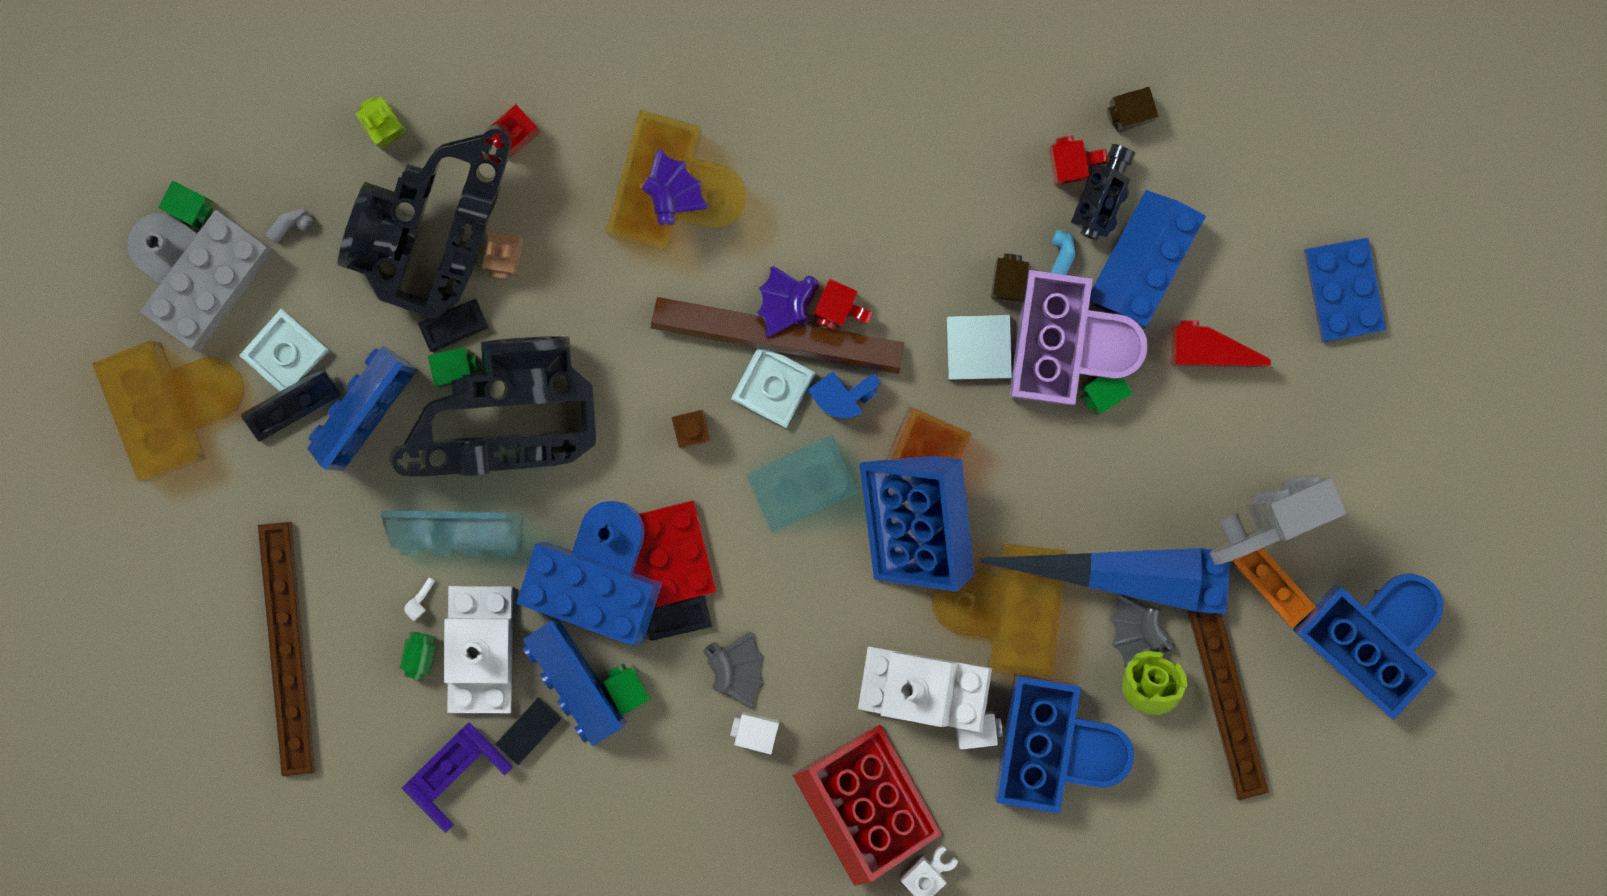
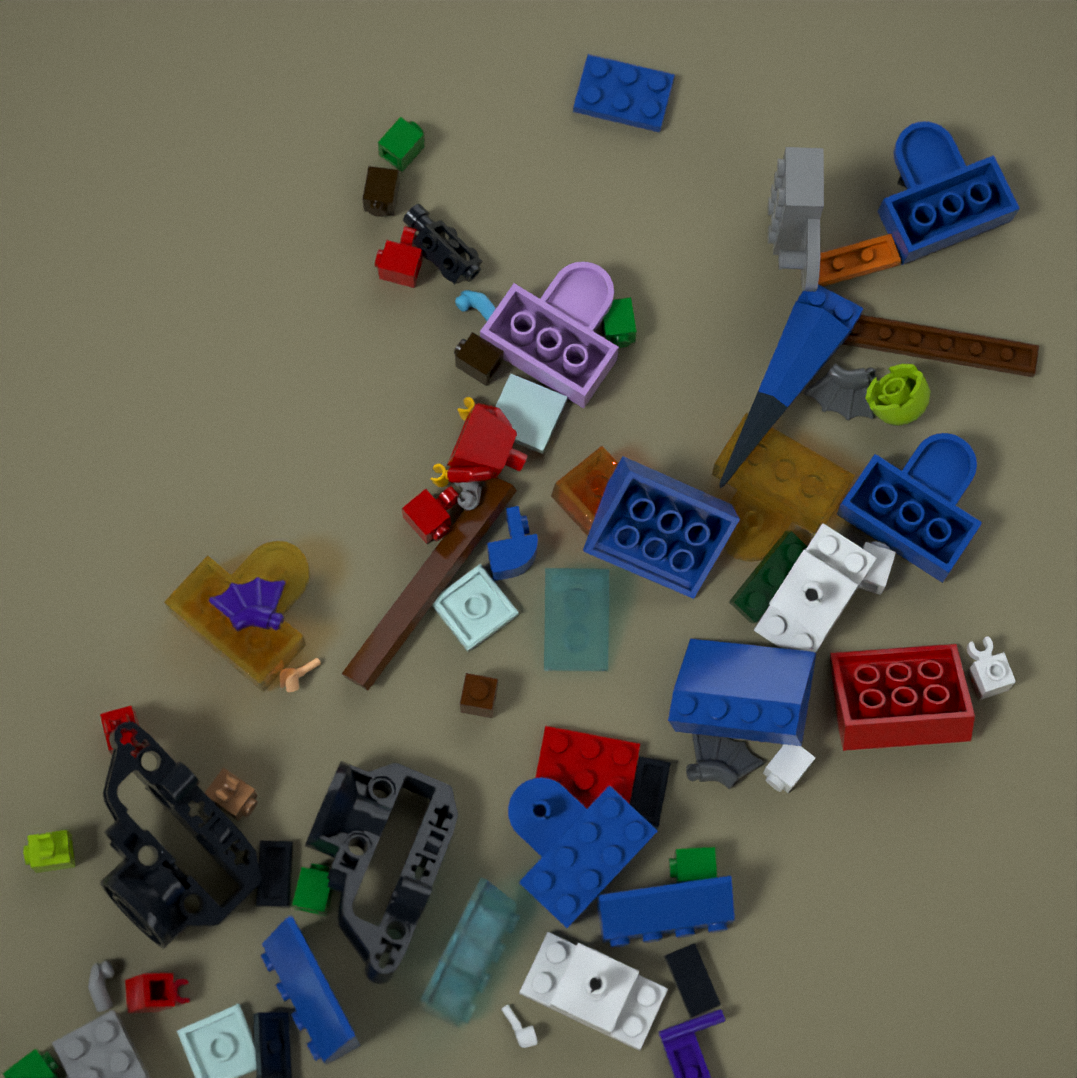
camera: 65 degrees left, 15 degrees down
(300, 274) = (153, 992): none -> red brick
(418, 655) = (572, 1051): green brick -> none
(632, 253) = (290, 677): none -> light nougat hand
(785, 300) = (402, 559): dark purple arm -> none
(804, 663) = (743, 692): none -> blue slope
(879, 332) = (470, 495): none -> light grey arm
(922, 323) = (481, 447): none -> red torso
(924, 639) = (762, 584): none -> dark green plate
(1146, 257) = (515, 234): blue slope -> none
(1191, 105) = (401, 143): none -> green brick
(1207, 347) = (621, 220): red slope -> none

